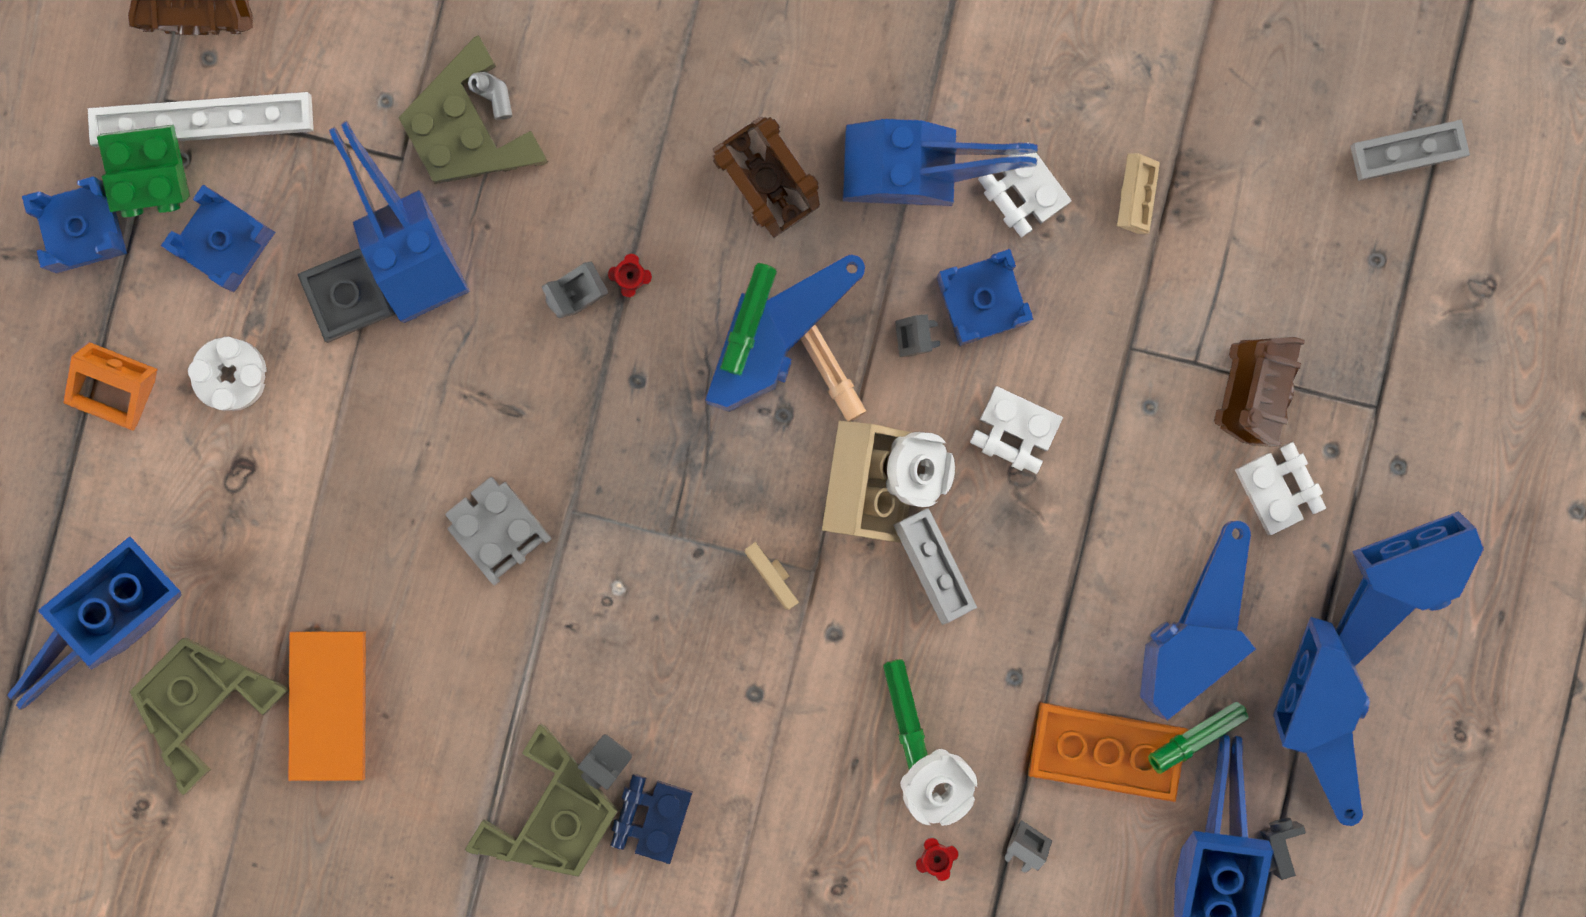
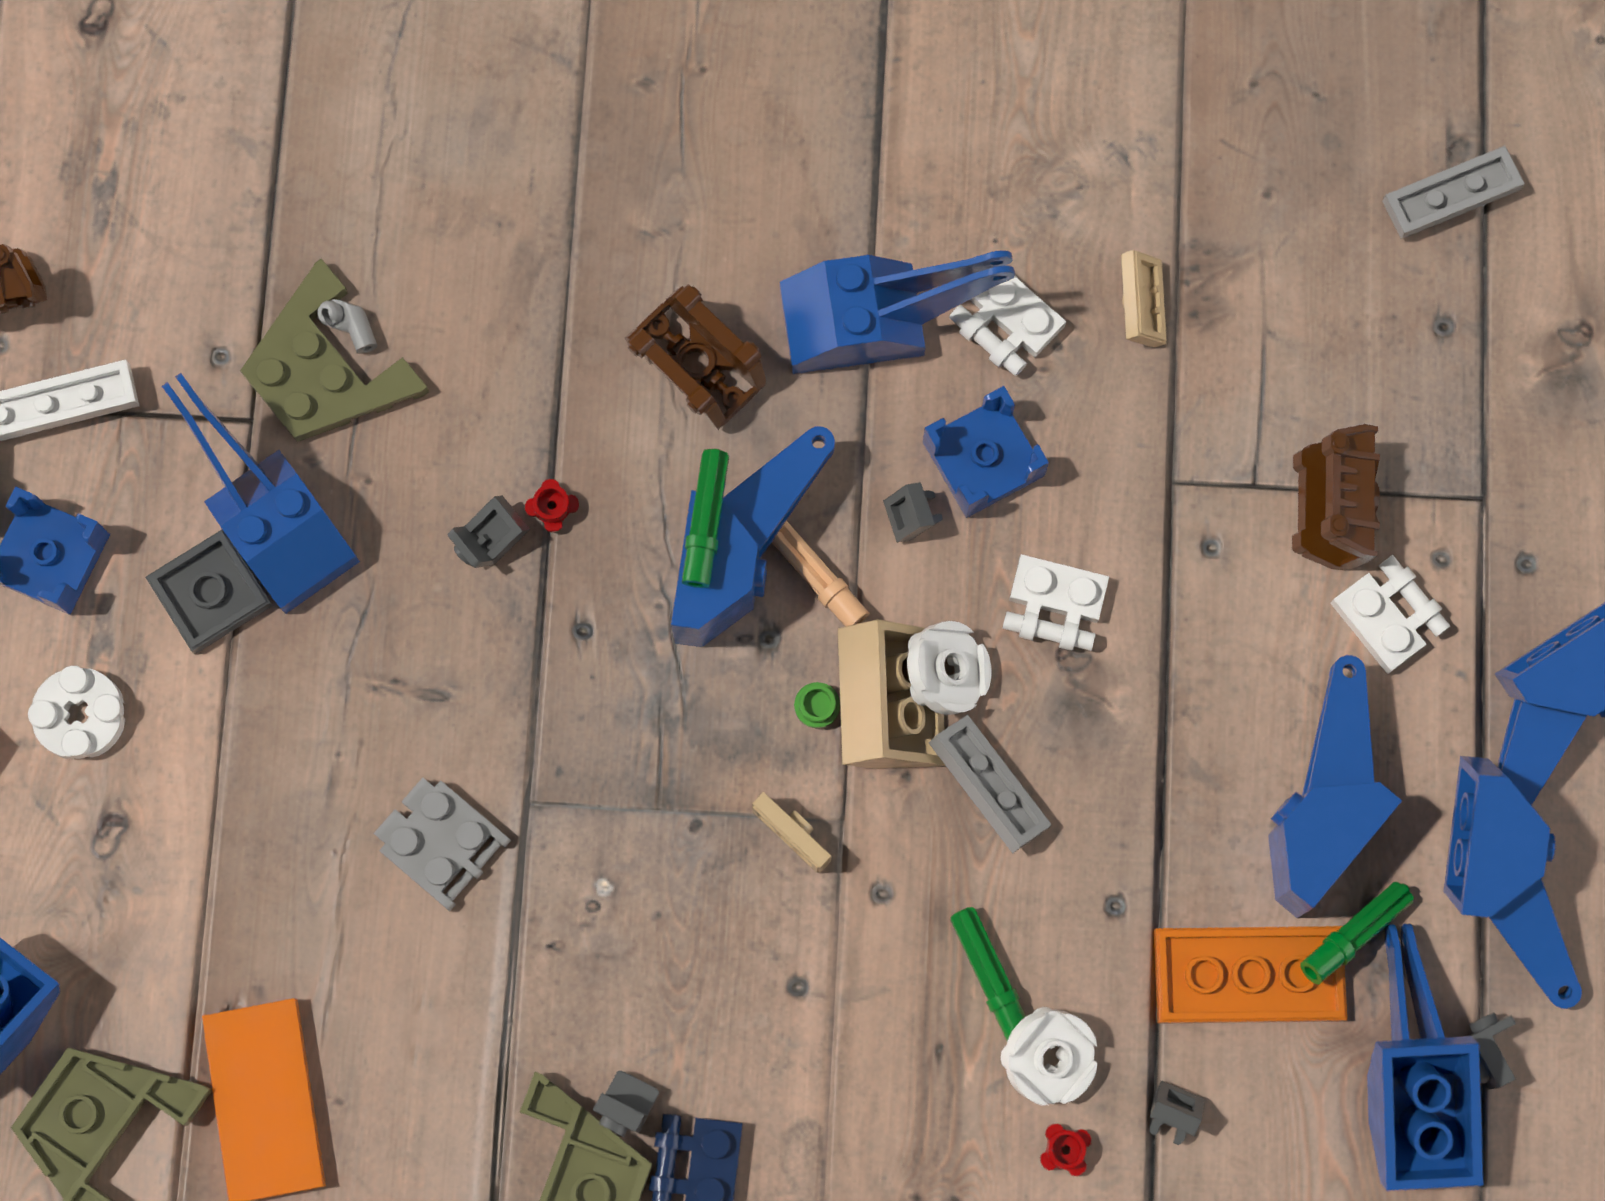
camera: 10 degrees left, 10 degrees down
(811, 477) = (817, 705): none -> bright green plate

